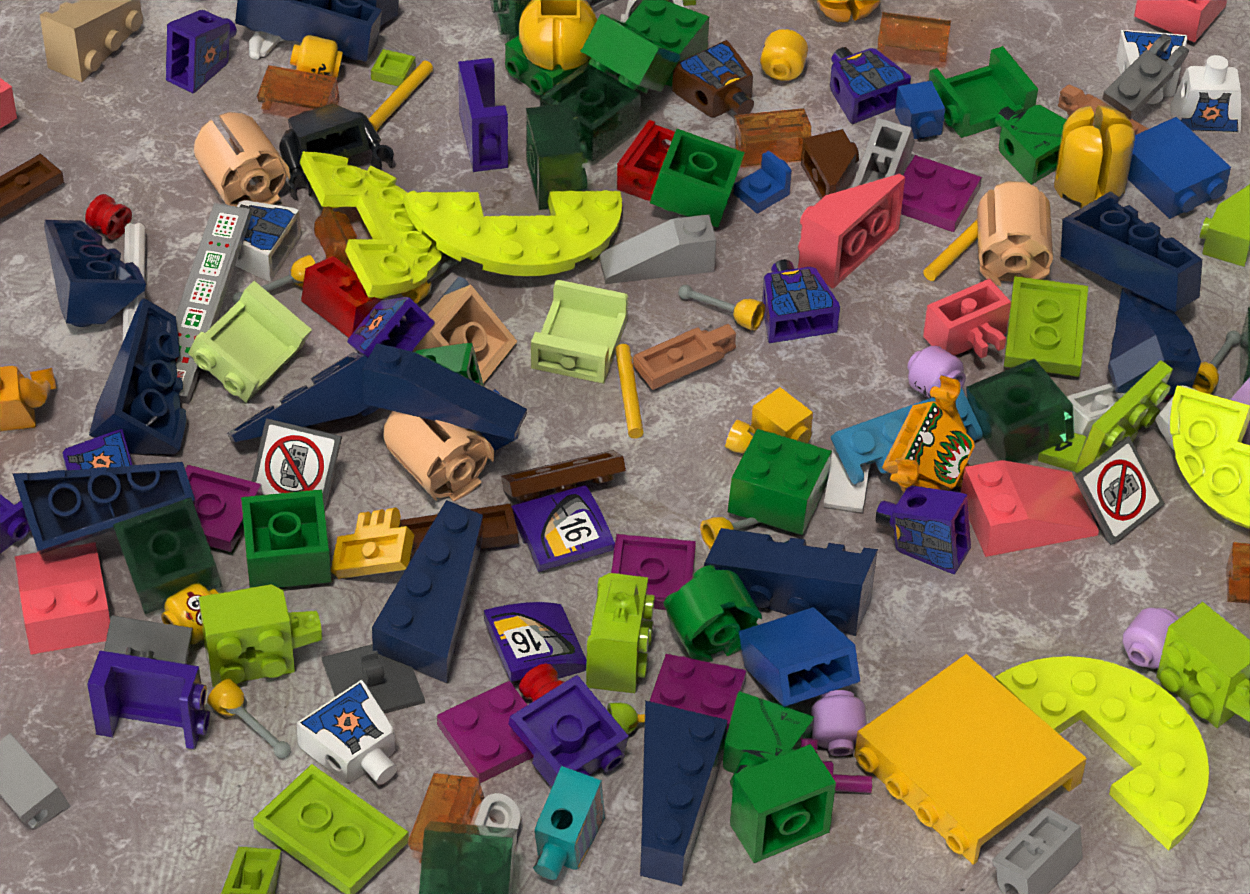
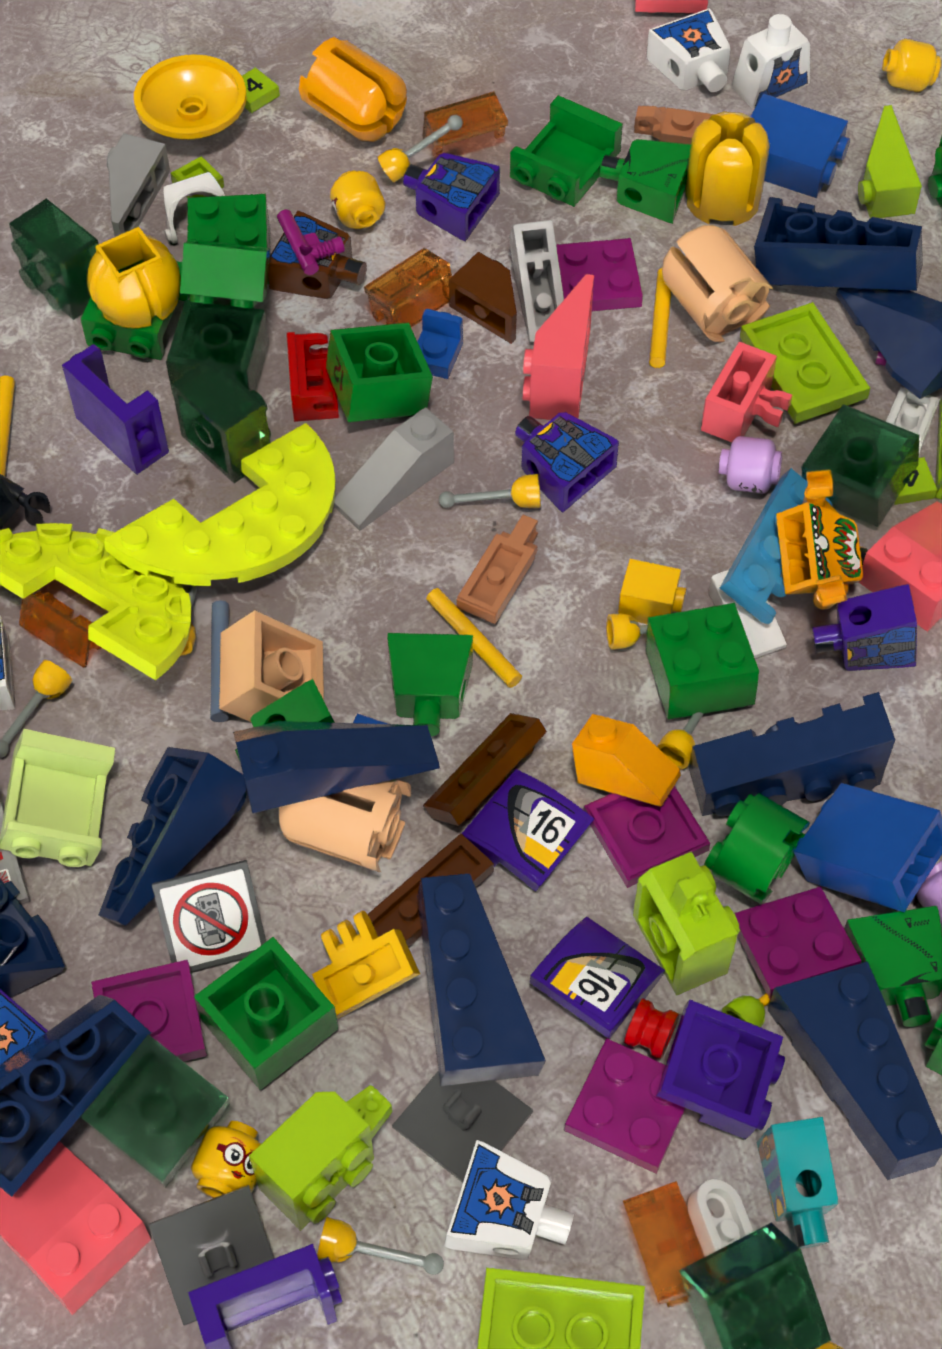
camera: 30 degrees left, 10 degrees up
(336, 294) = (109, 691): red hinge -> none
(389, 328) = (204, 709): dark purple torso -> none
(572, 397) = (429, 675): none -> green torso
(580, 332) = (379, 595): yellowish green panel -> none
(662, 513) = (622, 761): none -> light orange slope
(710, 67) = (307, 247): none -> magenta hose
(837, 38) = (396, 161): none -> hinge
(920, 109) = (524, 195): blue brick -> none
(1144, 77) = (708, 69): dark grey hinge -> none

